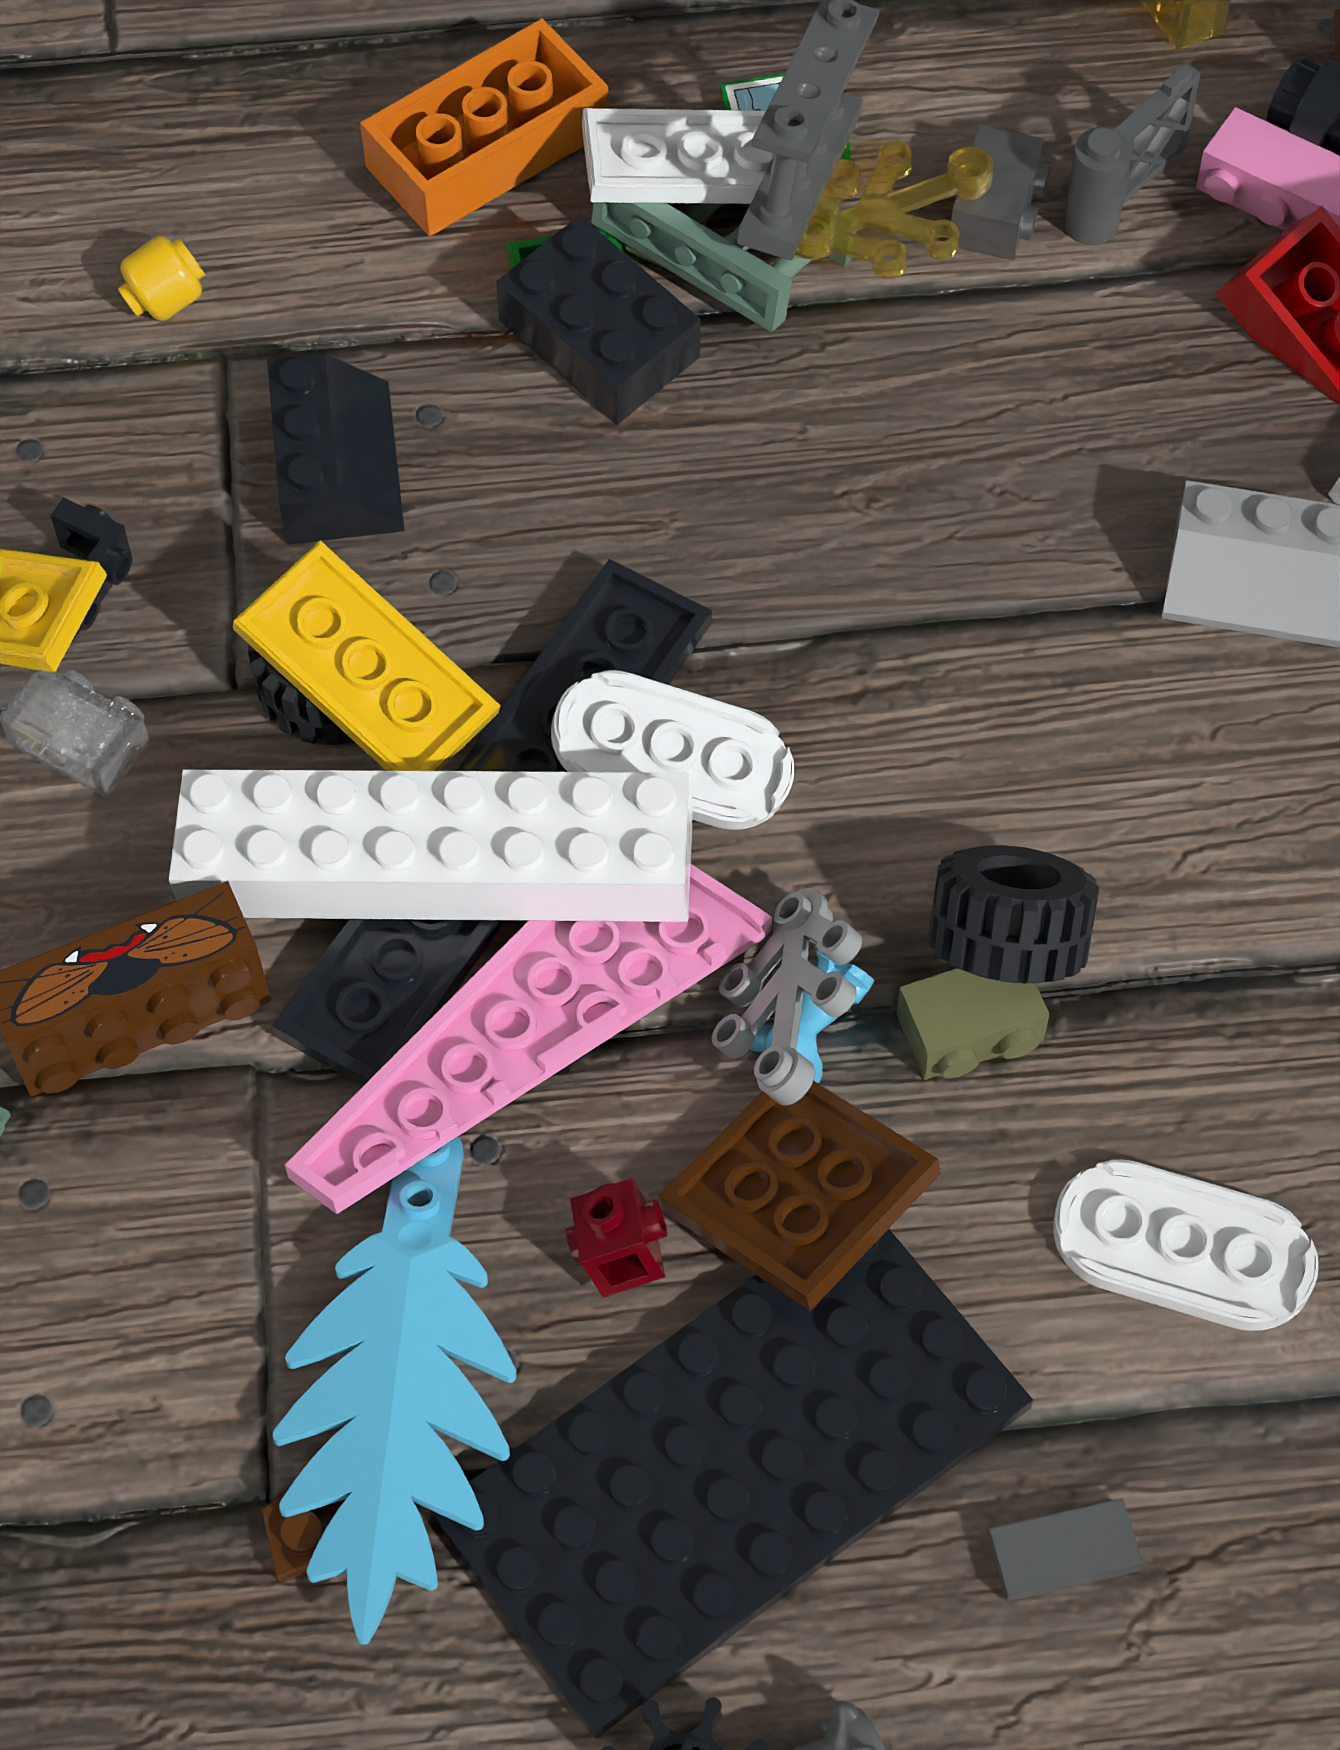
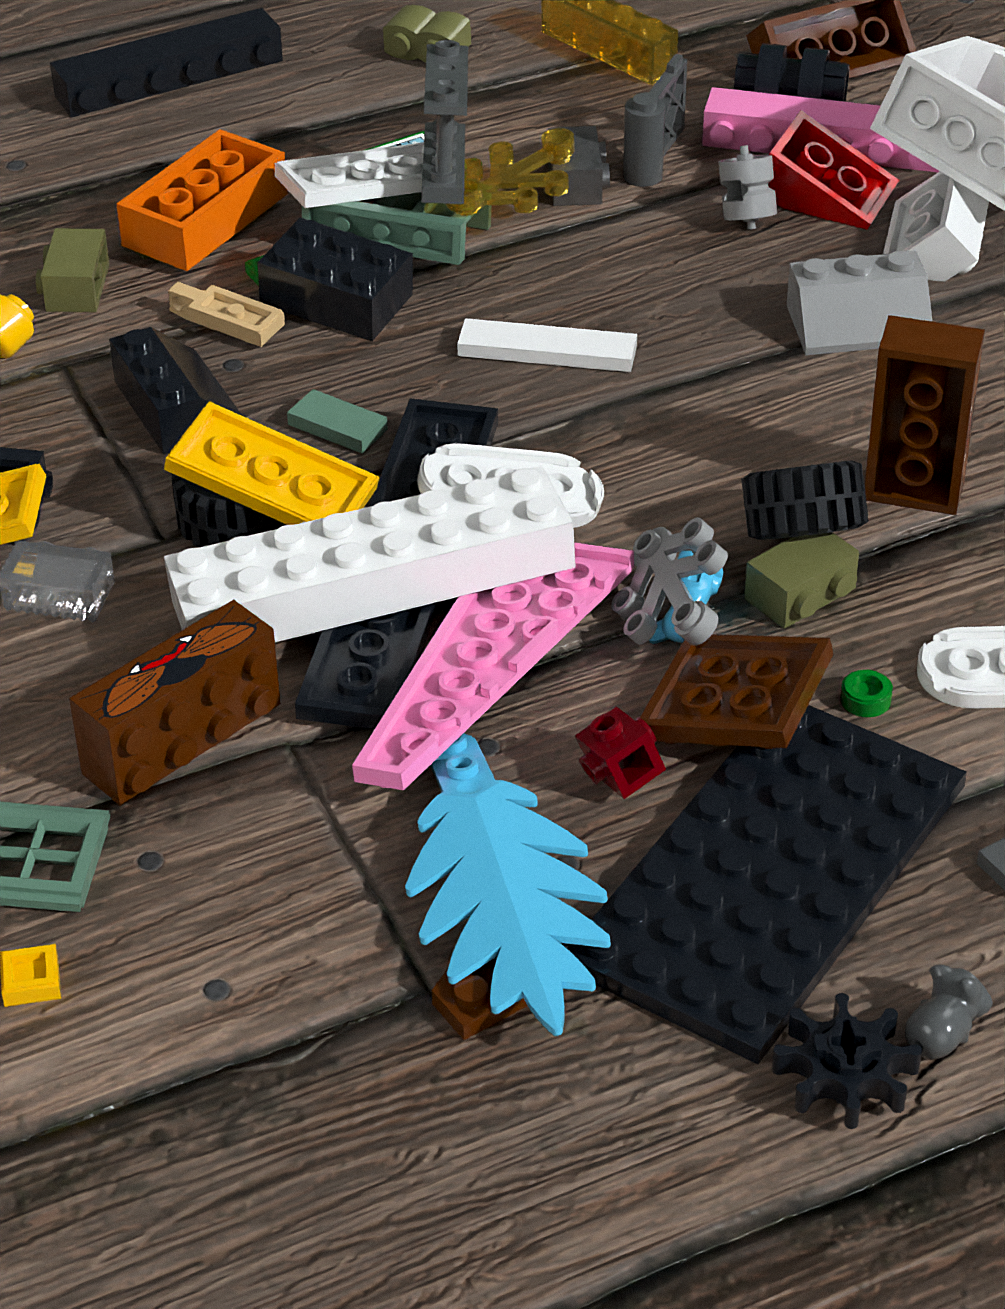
camera: 20 degrees left, 20 degrees down
(286, 201) = (73, 270): none -> olive brick
(447, 333) = (226, 312): none -> tan hinge
(514, 559) = (337, 421): none -> sand green tile
(830, 505) = (547, 345): none -> white tile
(973, 1225) = (866, 693): none -> green tile
(1202, 302) = (747, 187): none -> light grey wheel
(1213, 836) = (922, 414): none -> reddish brown brick

